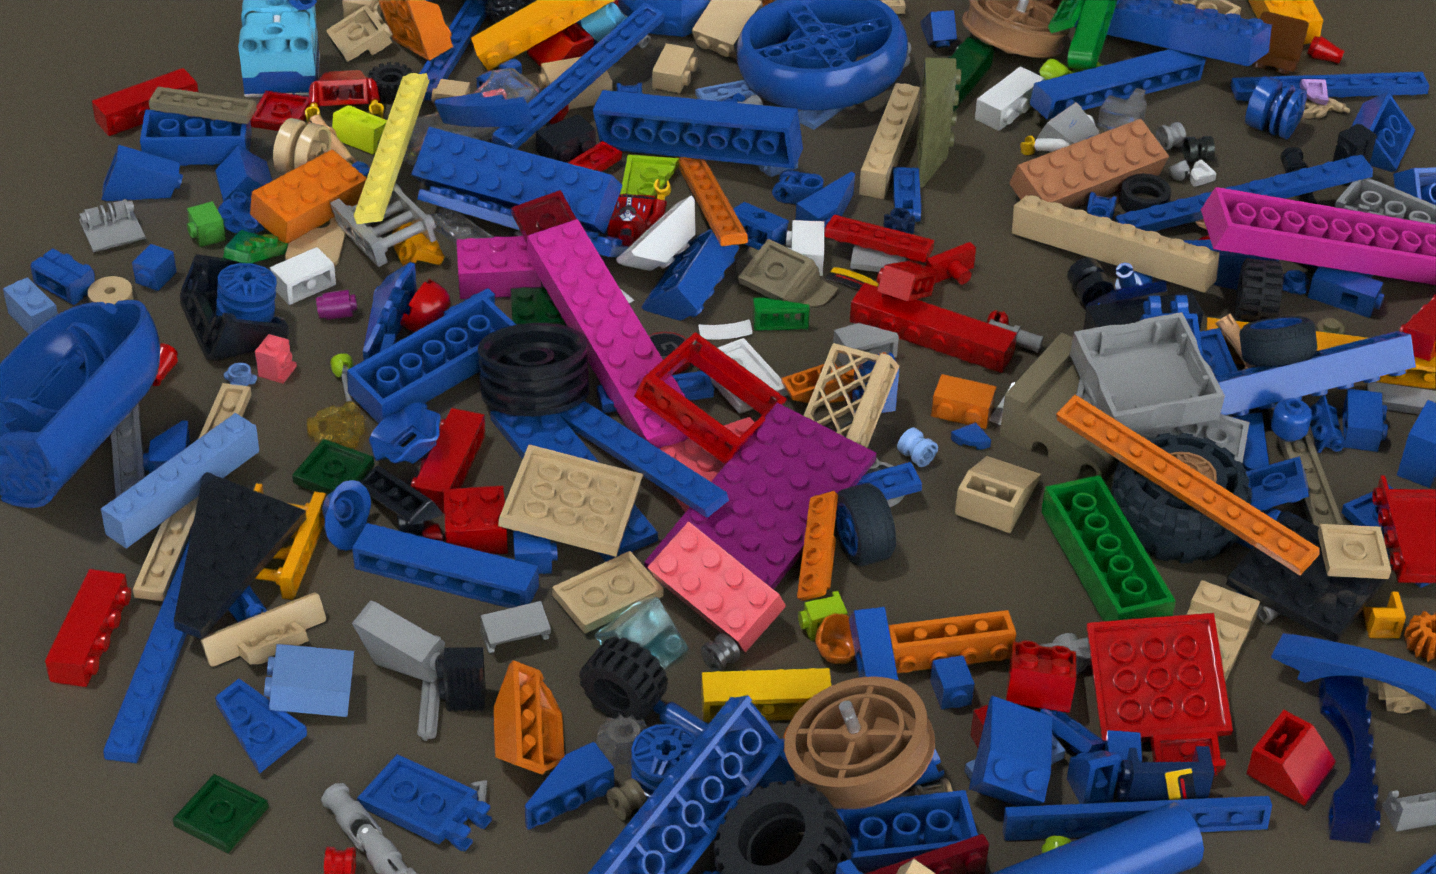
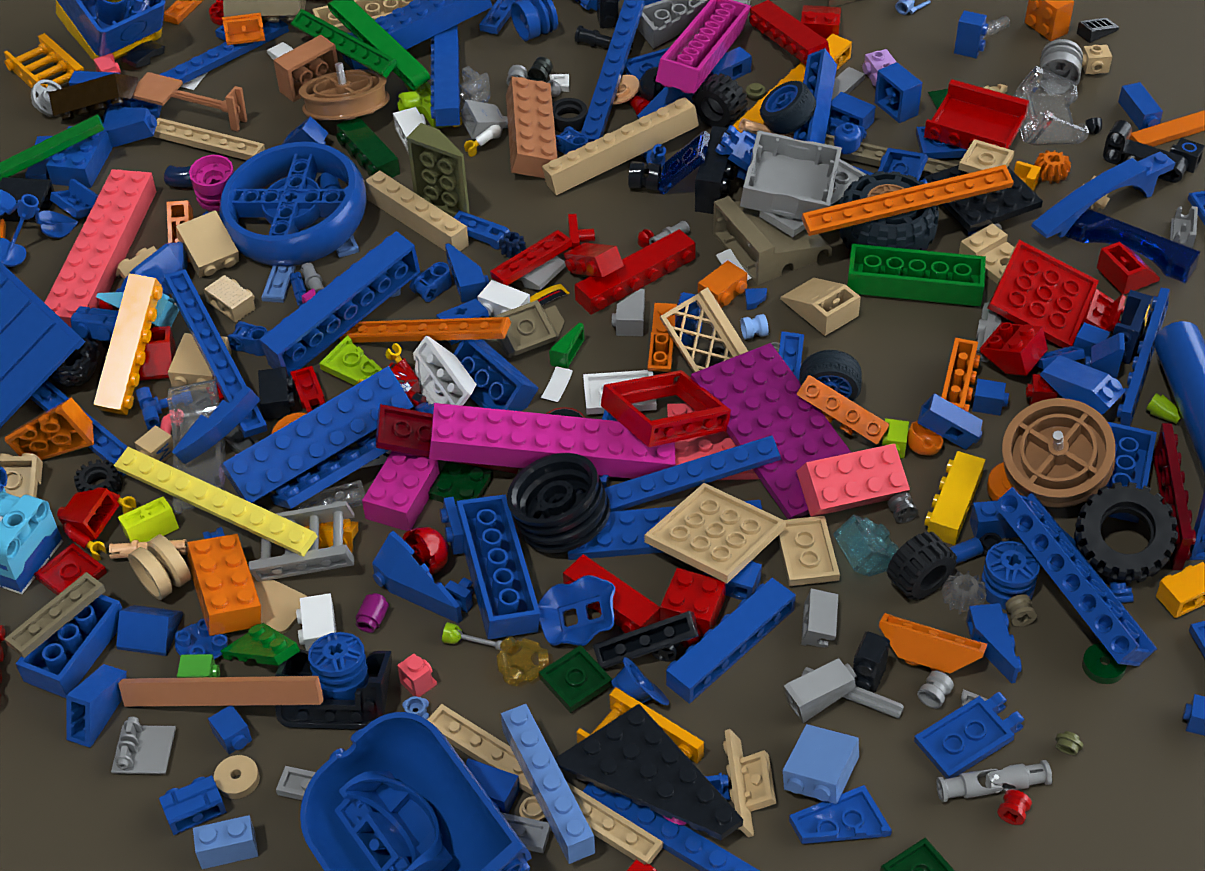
camera: 60 degrees left, 5 degrees up
(178, 238) = (221, 691): none -> nougat tile
(472, 752) = (935, 689): none -> light grey wheel

